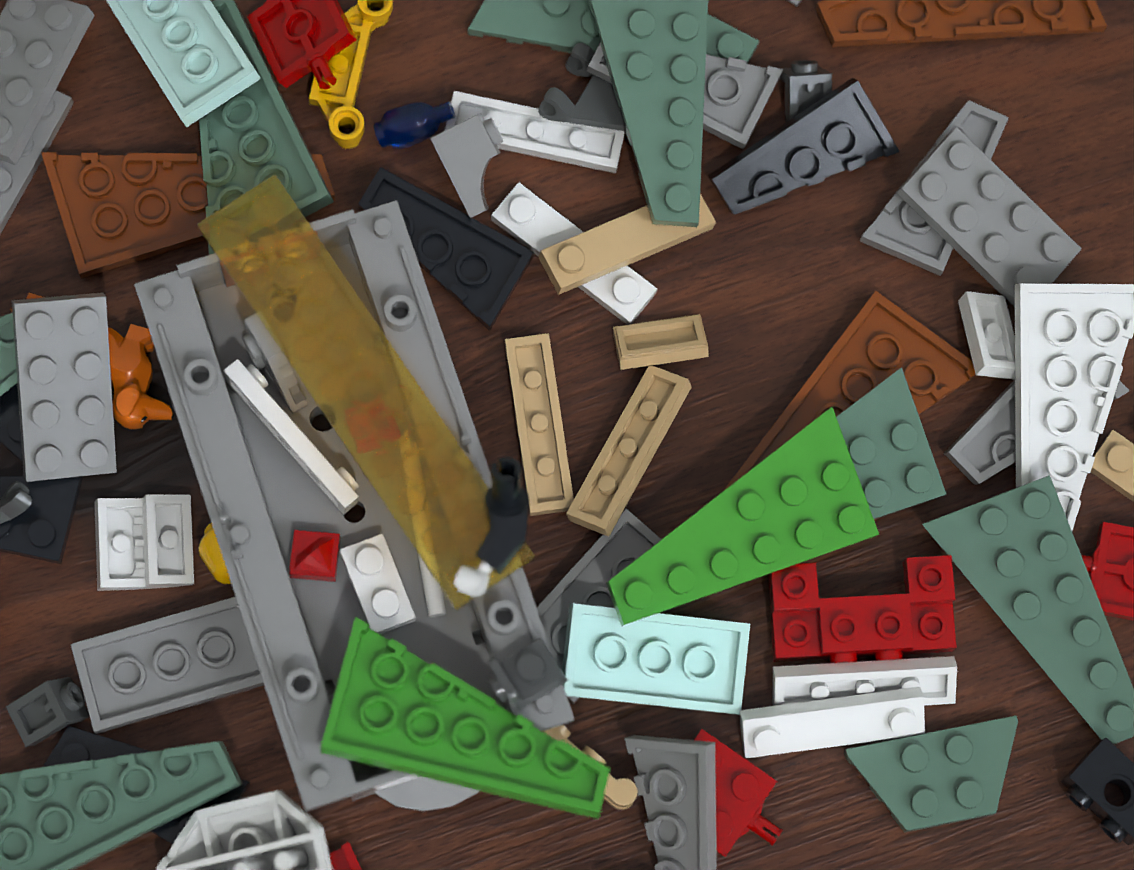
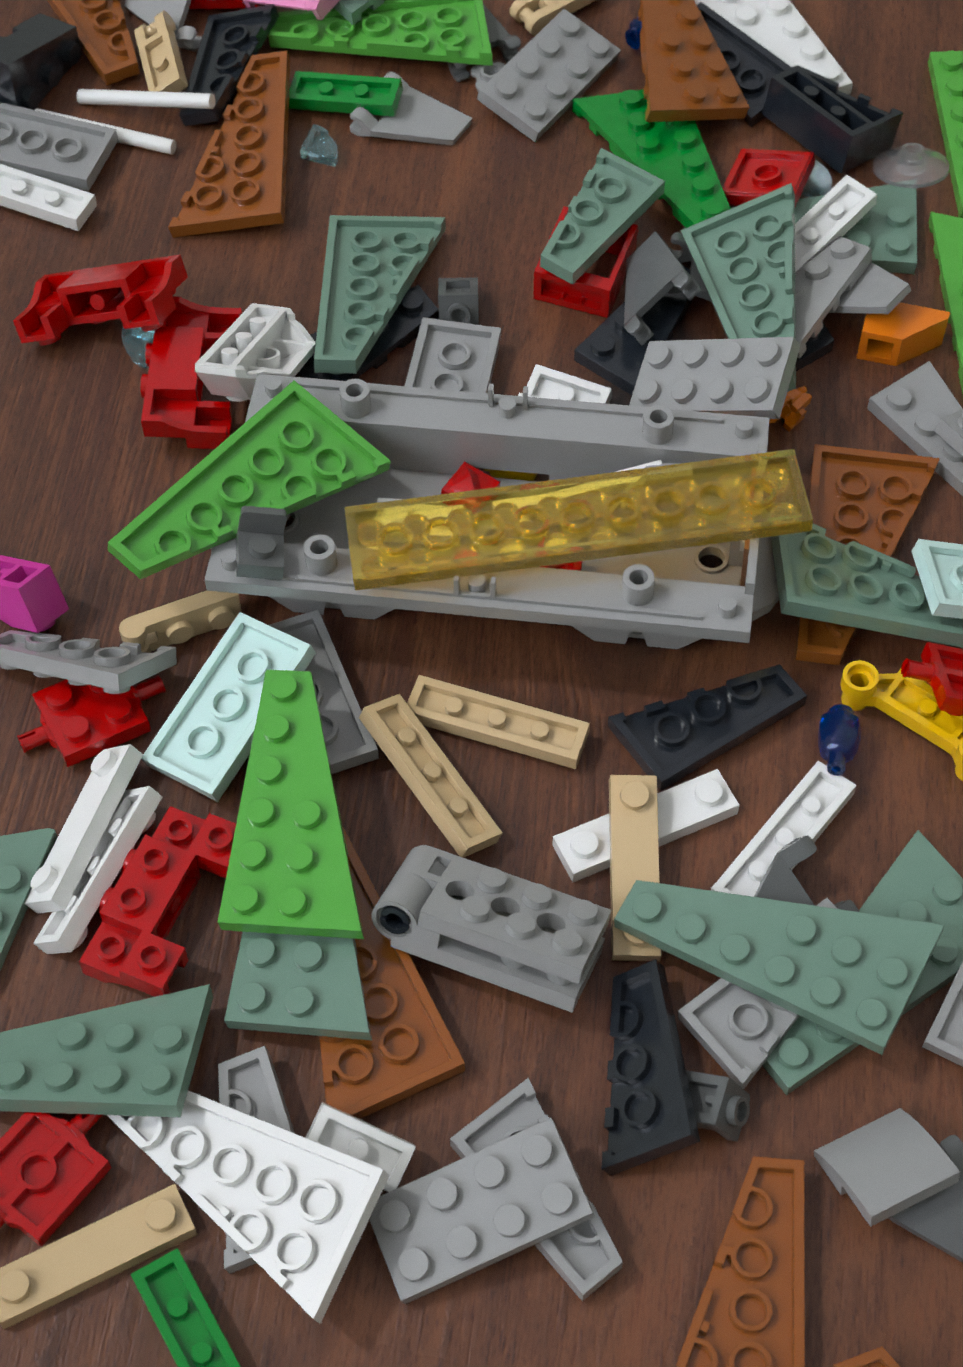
camera: 125 degrees right, 20 degrees down
(465, 155) = (775, 755): light grey arch -> none
(508, 522) = (390, 557): black arm -> none
(660, 342) = (523, 842): tan tile -> none
(779, 378) = (492, 925): none -> light grey hinge

